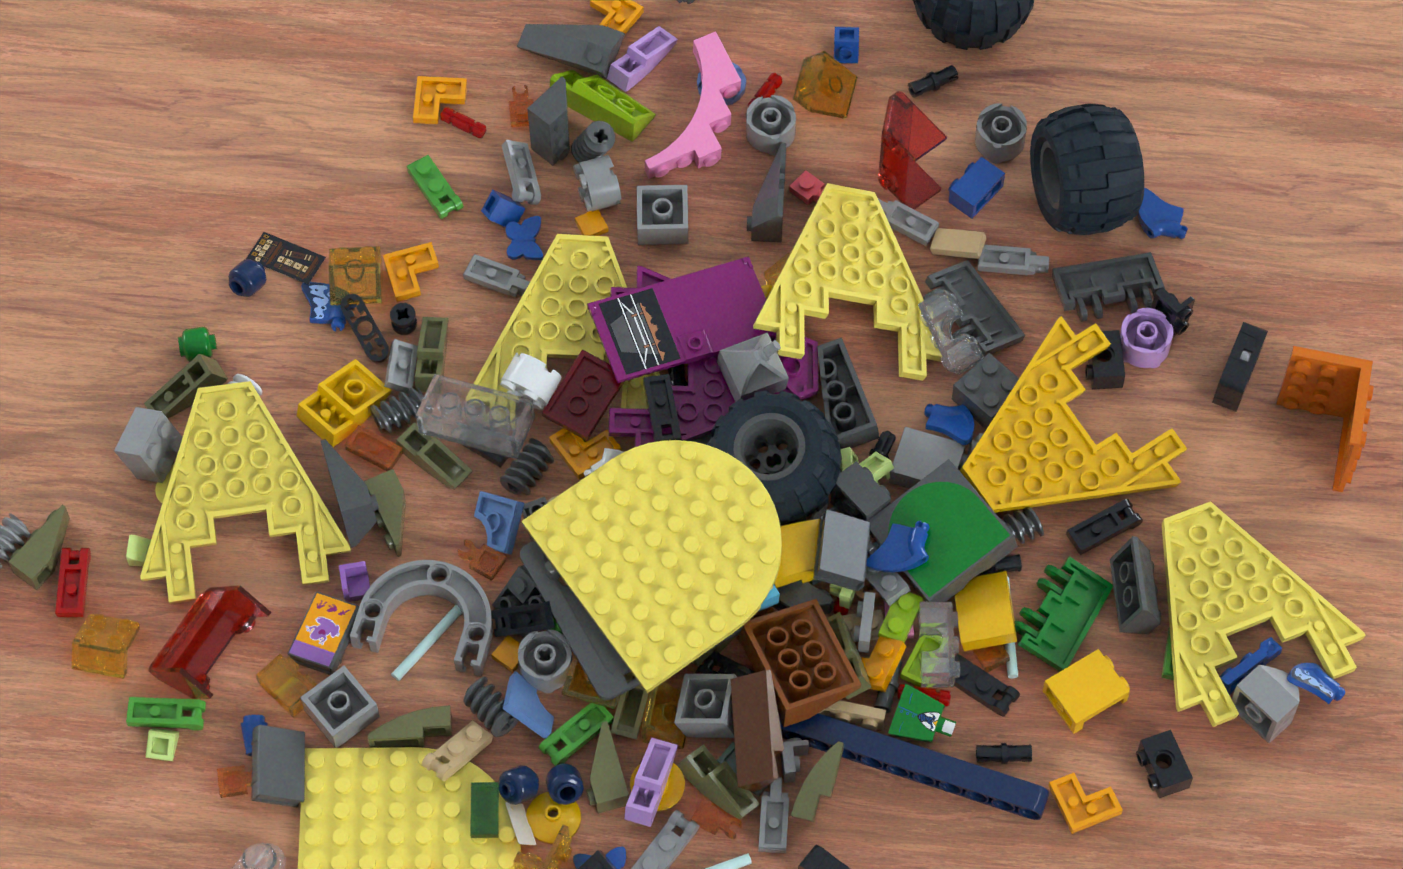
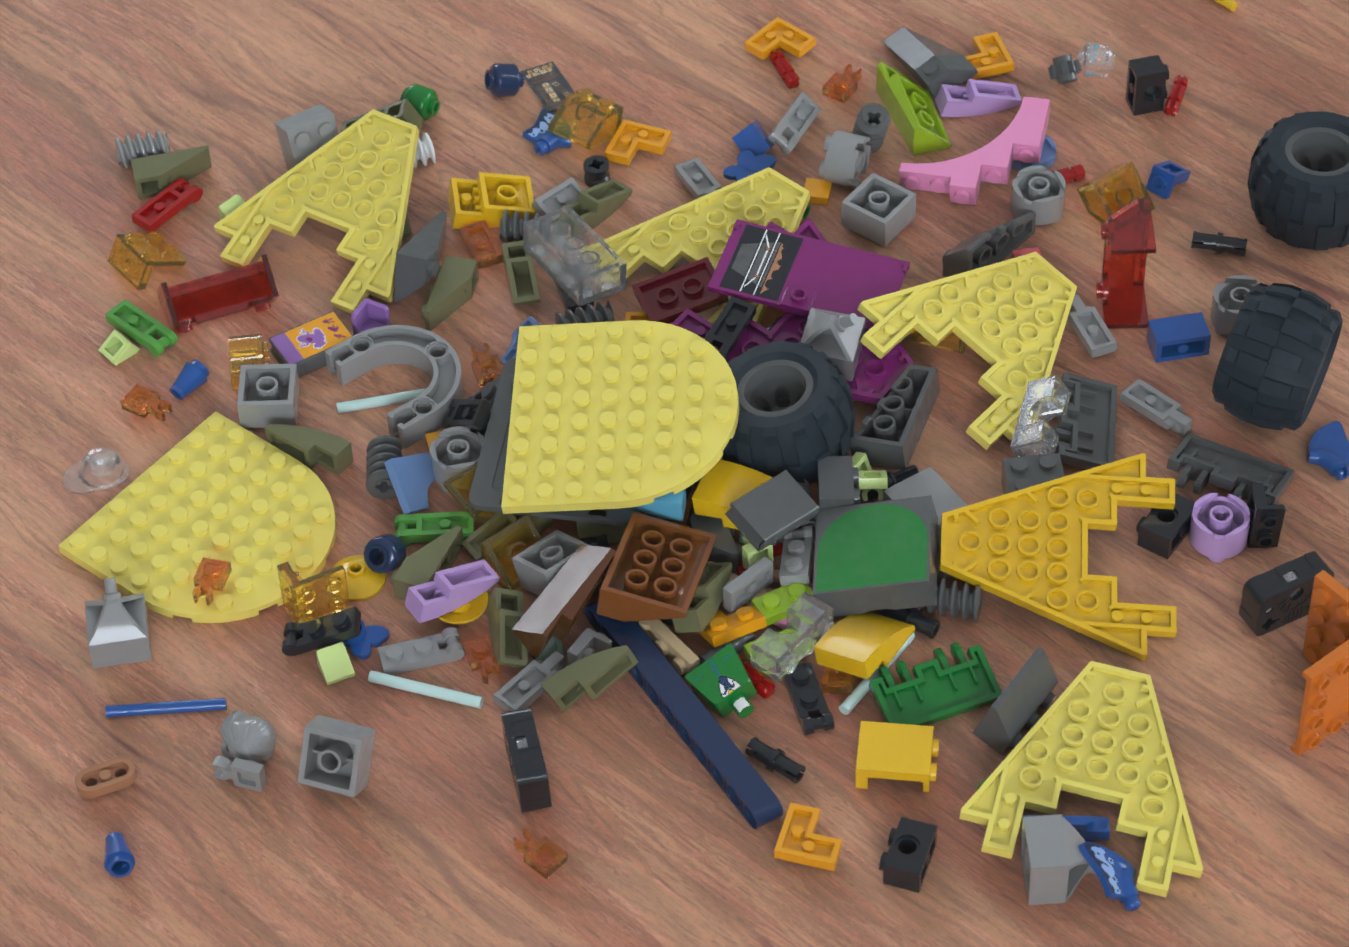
camera: 40 degrees right, 15 degrees down
(278, 766) = (180, 406): dark grey piece -> none
(368, 348) = (553, 148): black beam -> none
(434, 186) = (716, 99): bright green plate -> none
(457, 751) = (325, 480): tan plate -> none
(484, 810) = (303, 531): clear green tile -> none
(518, 784) = (348, 531): dark blue head -> none
(520, 824) = (324, 559): white sticker -> none
(530, 380) = (641, 253): white brick -> none
(550, 123) = (846, 89): dark grey slope -> none
(902, 549) = (827, 542): blue arm -> none
(952, 421) = (976, 487): blue arm -> none
(958, 243) = (1120, 367): tan tile -> none
(1103, 526) = (1021, 644): black plate -> none

